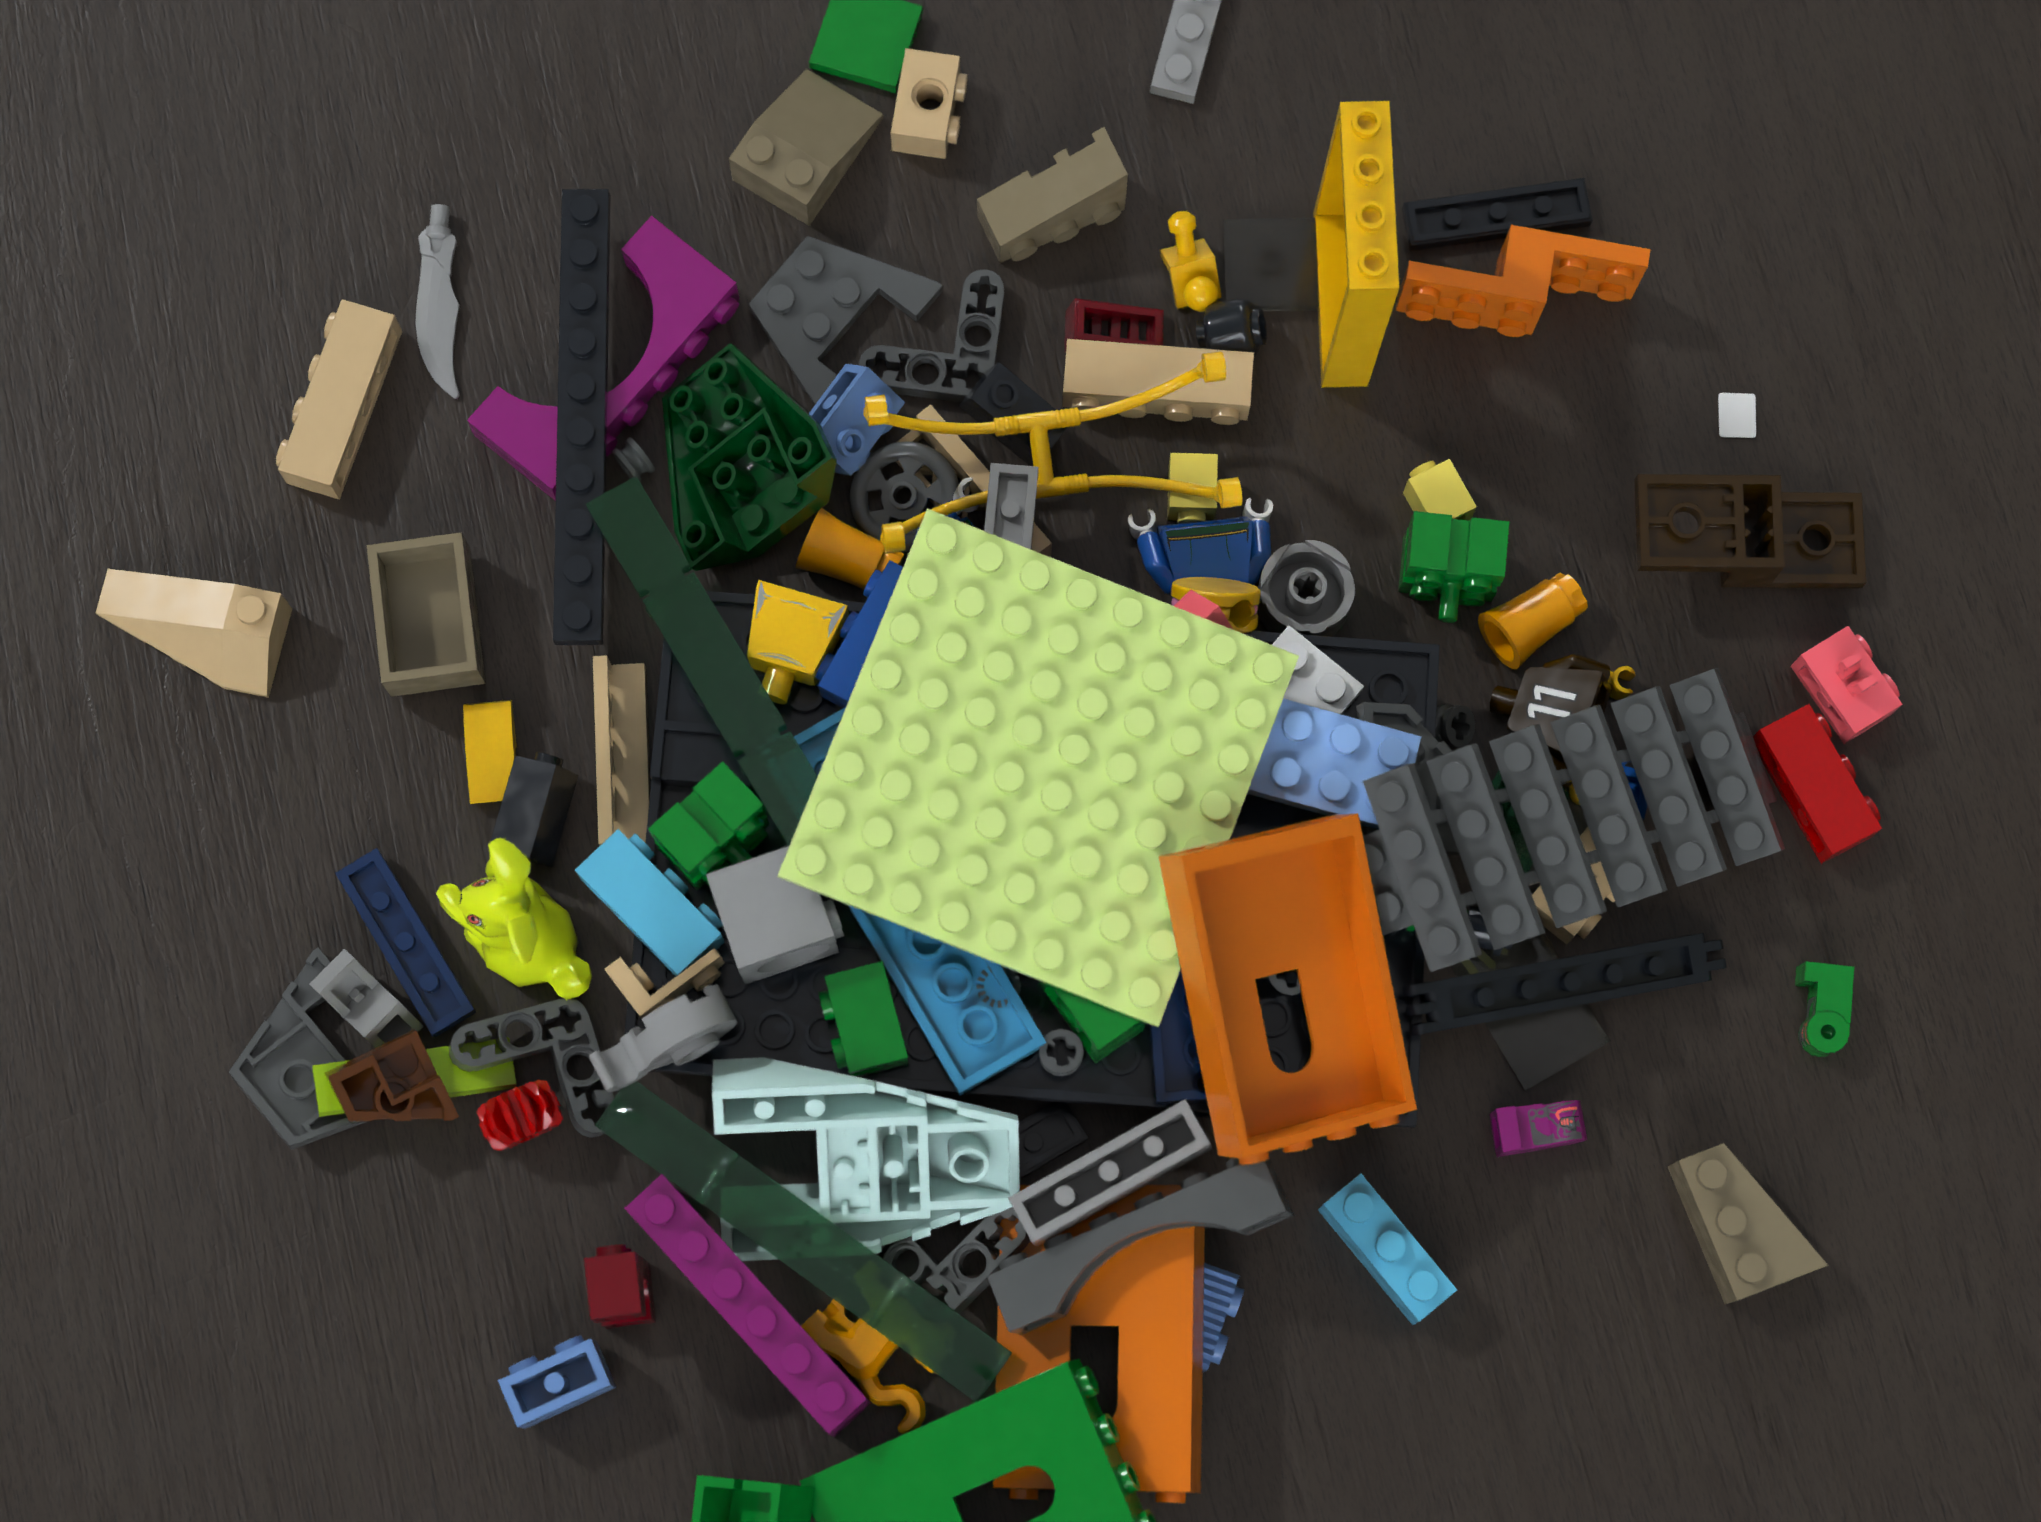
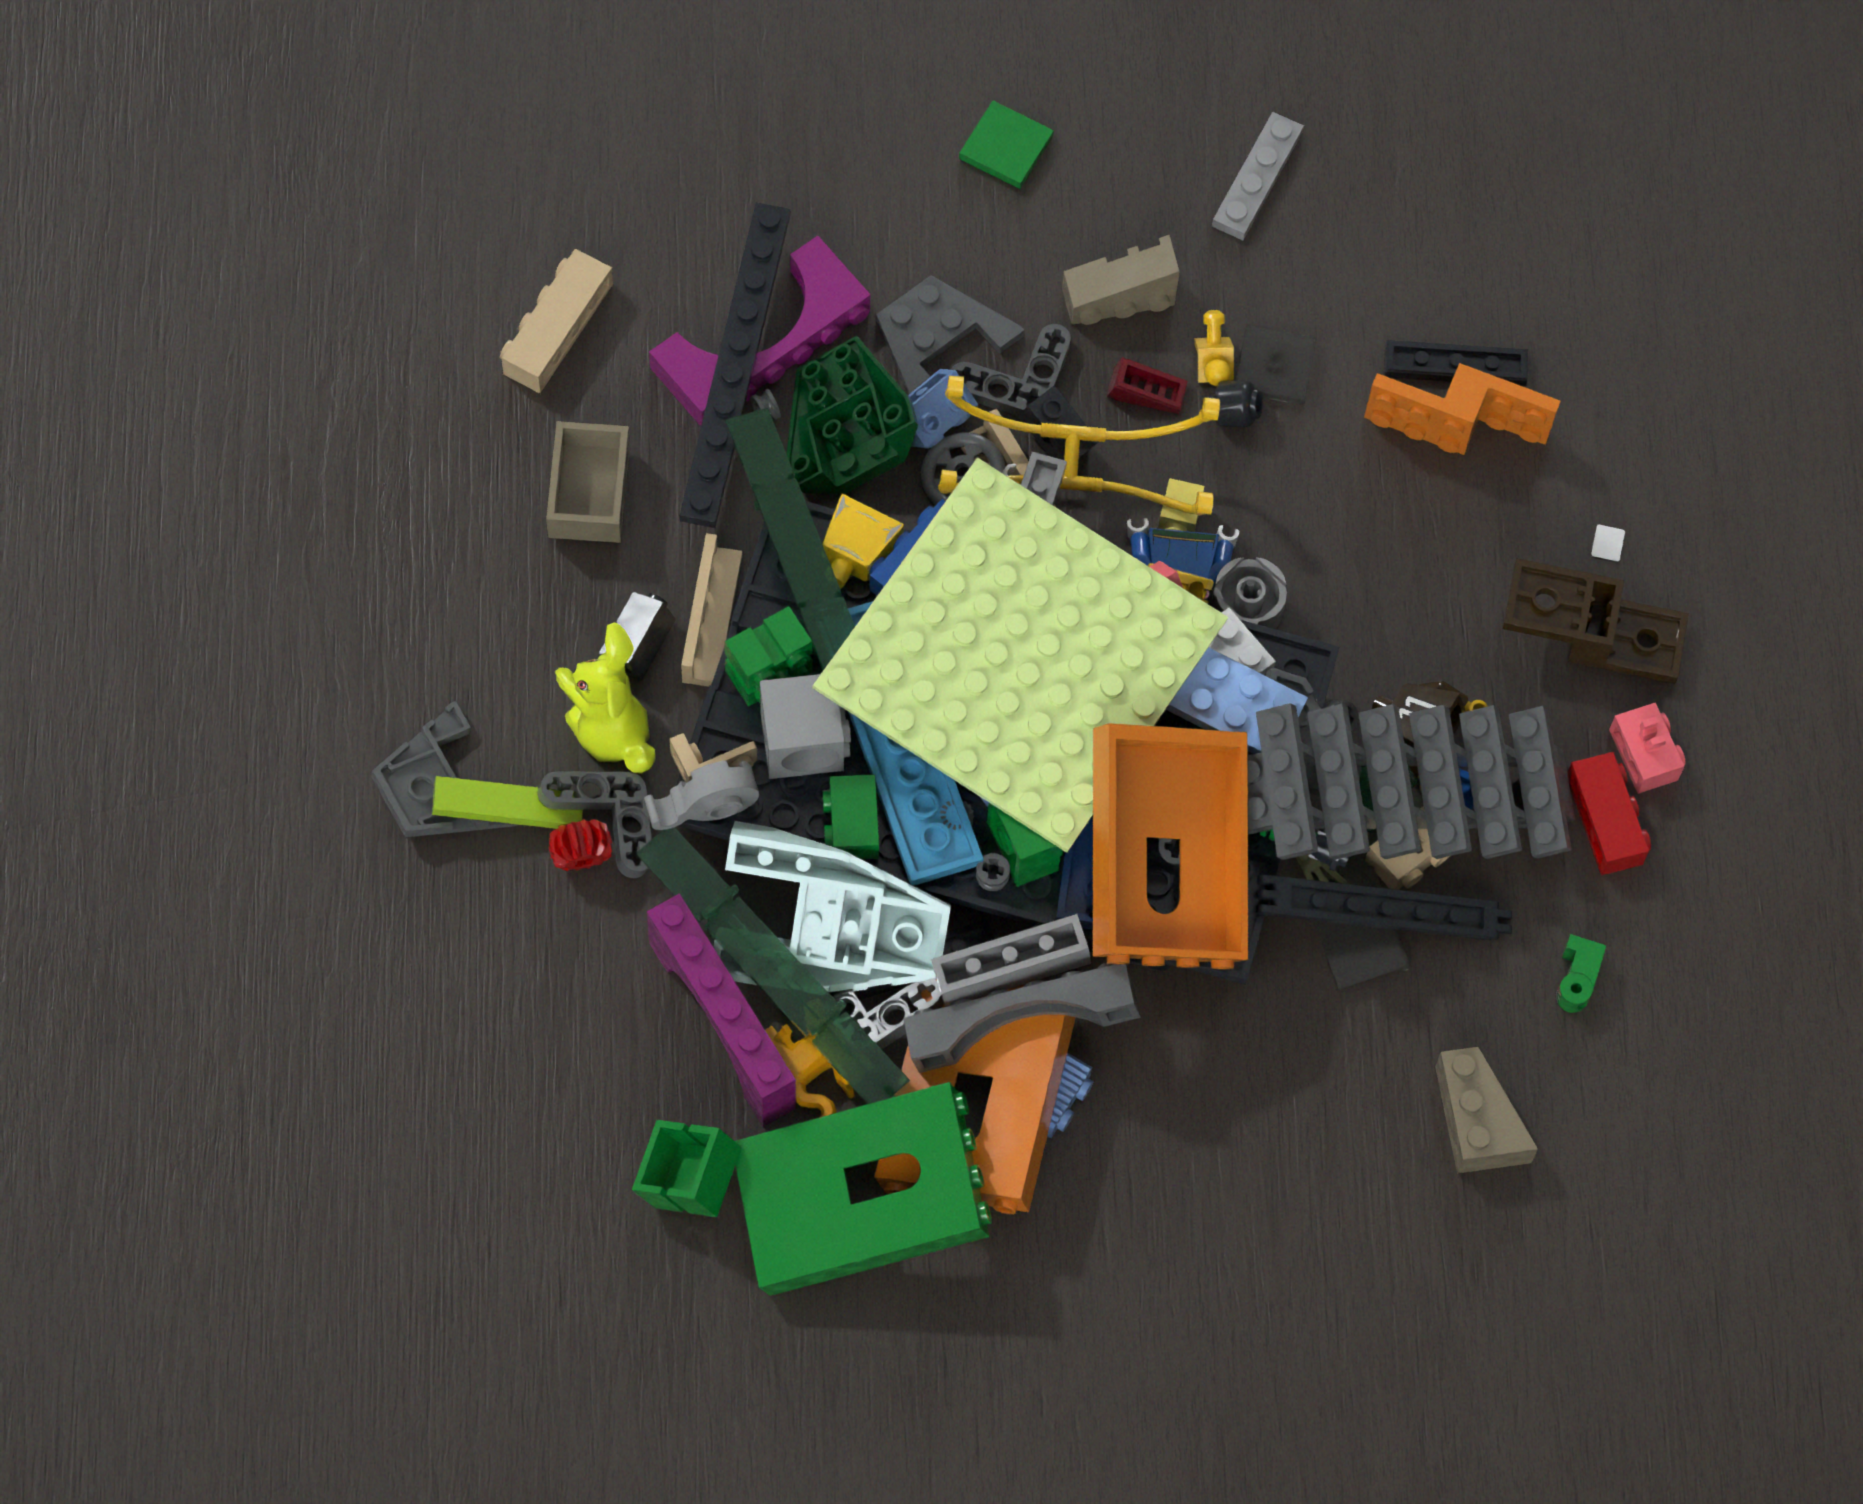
camera: 10 degrees right, 10 degrees down
(210, 626) = (424, 459): tan wedge -> none
(363, 1001) = (482, 745): light grey brick -> none
(392, 1084) = (492, 800): reddish brown slope -> none
(405, 942) = (521, 710): dark blue plate -> none
(436, 302) = (643, 267): light grey sword -> none
(489, 749) = (613, 587): yellow slope -> none
(556, 1383) = (566, 1037): medium blue brick -> none
(619, 1287) = (629, 974): dark red arch -> none
(650, 902) = (711, 702): medium azure brick -> none
(803, 145) = (941, 211): dark tan slope -> none
(843, 551) = (902, 497): light orange plant -> none
(922, 78) = (1047, 181): tan brick -> none
(1114, 371) = (1209, 443): tan brick -> none
(1356, 244) = (1335, 349): yellow panel -> none
(1387, 1249) = (1207, 1075): medium azure brick -> none
(1439, 491) = (1366, 554): light yellow brick -> none
(1454, 559) = (1365, 596): green brick -> none
(1531, 619) = (1417, 652): light orange plant -> none
(1536, 1127) = (1341, 1014): magenta leg -> none

